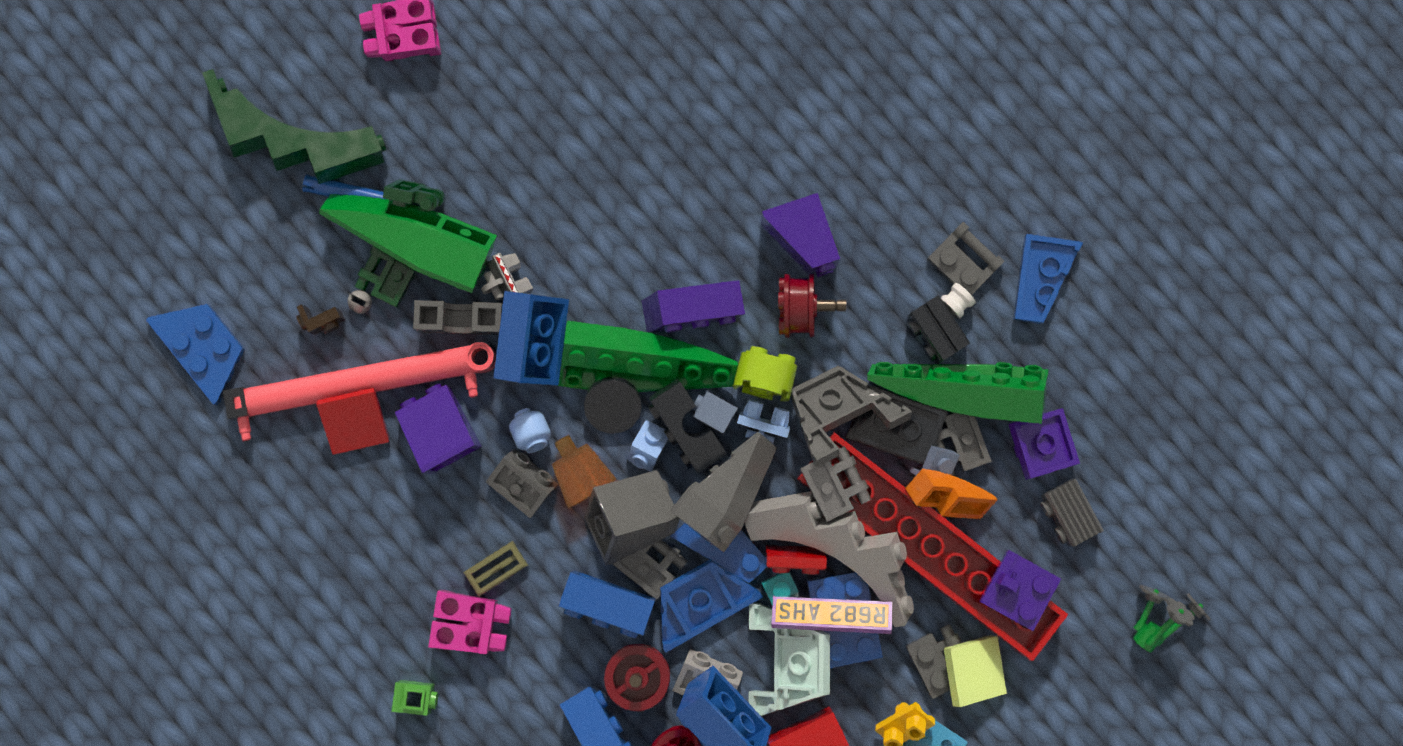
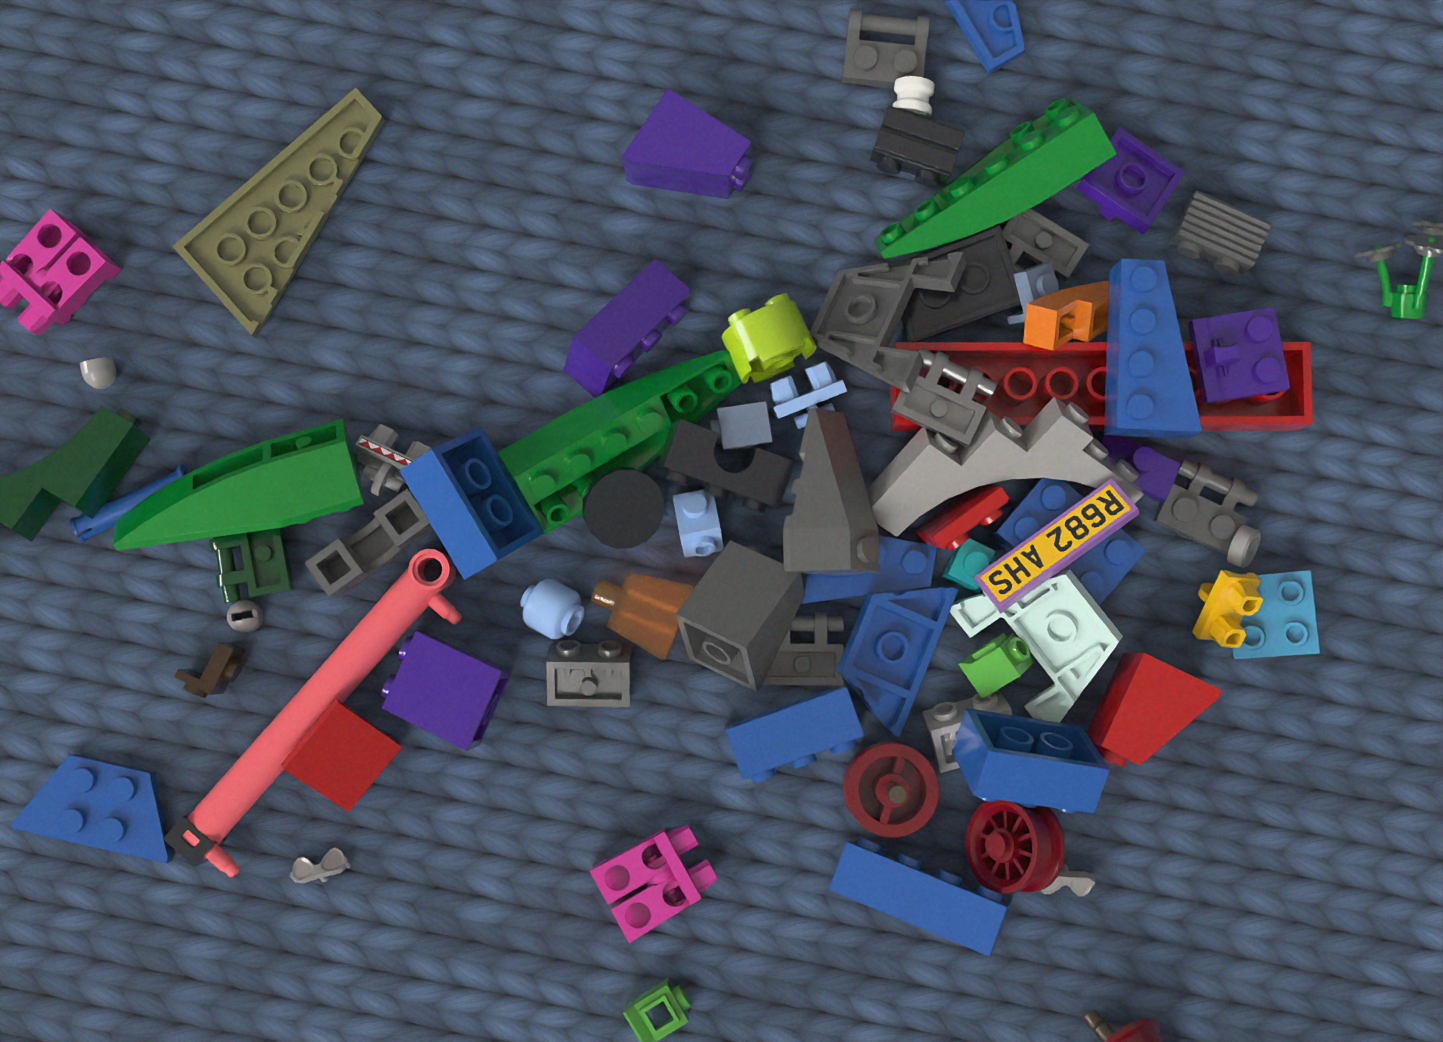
camera: 45 degrees left, 0 degrees up
(302, 475) = (331, 864): none -> light grey piece
(384, 104) = (99, 372): none -> light grey hinge
(407, 192) = (204, 449): dark green plate -> none
(475, 581) = (647, 760): olive tile -> none
(538, 93) = (268, 225): none -> olive wing
(750, 654) = (996, 663): none -> bright green window
(800, 305) = (747, 233): dark red wheel -> none
(925, 615) = (1154, 470): none -> dark purple tile
(940, 700) = (1244, 546): none -> light grey tile
(961, 554) = (1146, 360): none -> blue wedge
(975, 671) = (1254, 486): yellowish green tile -> none

